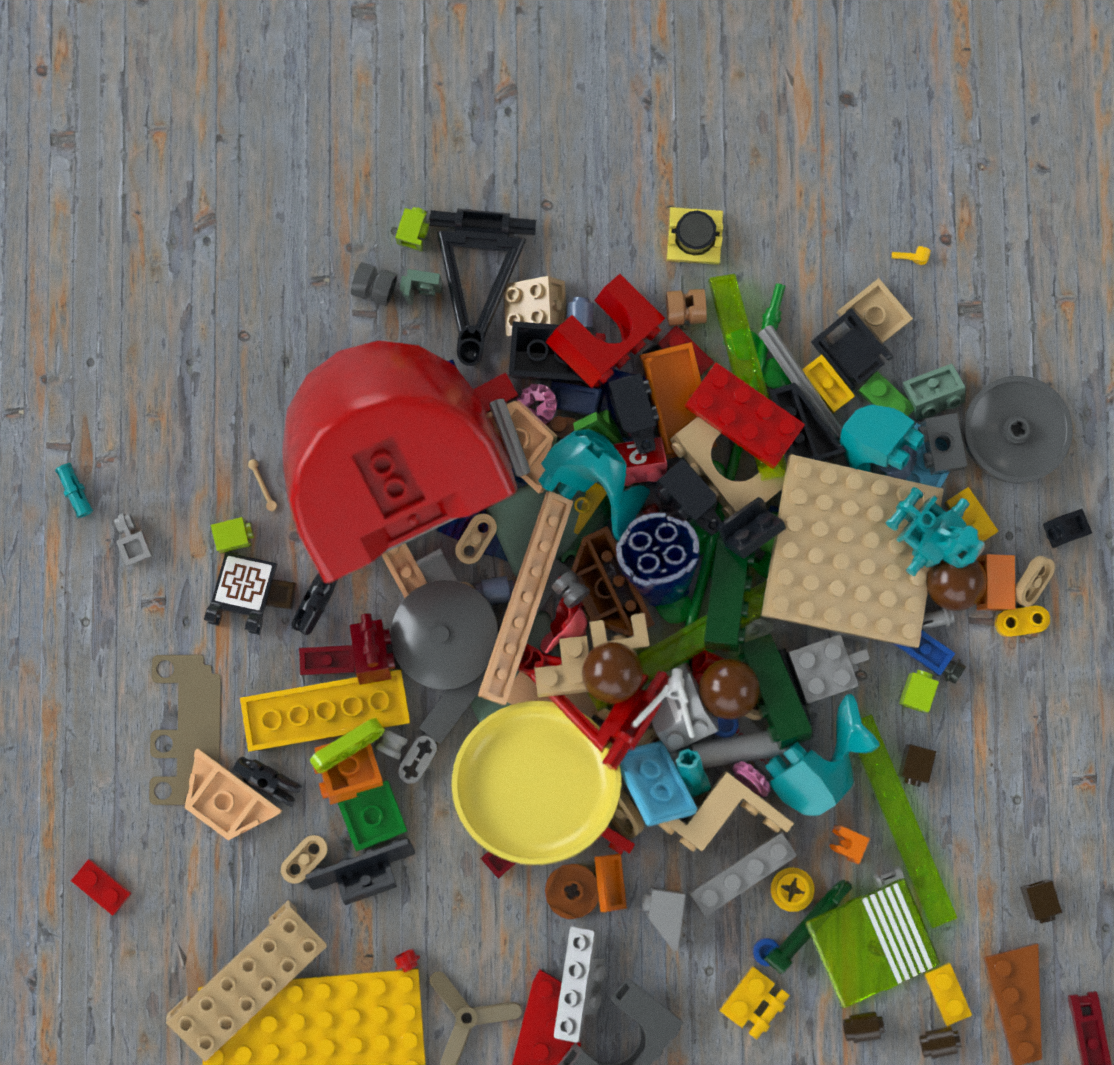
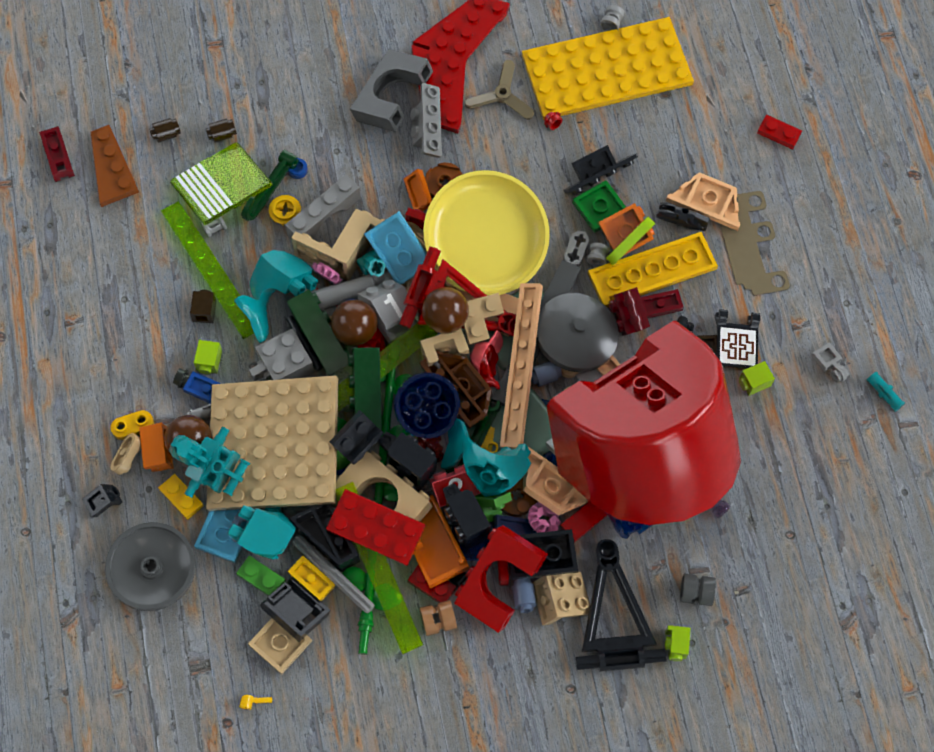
camera: 170 degrees right, 15 degrees down
(246, 983) = (660, 86): tan bracket -> none
(271, 505) = (754, 435): tan hinge -> none
(304, 858) = (641, 172): tan plate -> none
(426, 282) = (659, 594): sand green bracket -> none
(509, 437) = (560, 482): light grey axle -> none
(570, 589) = (488, 374): flat silver wheel -> none
(666, 913) = (376, 174): light grey slope -> none
(673, 690) = (396, 312): white plant -> none
(695, 234) = (441, 683): piece -> none
(746, 999) = (306, 138): yellow plate -> none
(852, 846) = (246, 244): orange hinge -> none
(935, 391) = (222, 588): sand green bracket -> none
(947, 994) = (162, 162): yellow plate -> none
(948, 429) = (203, 531): dark grey brick -> none
(1041, 901) = (100, 231): dark brown brick -> none

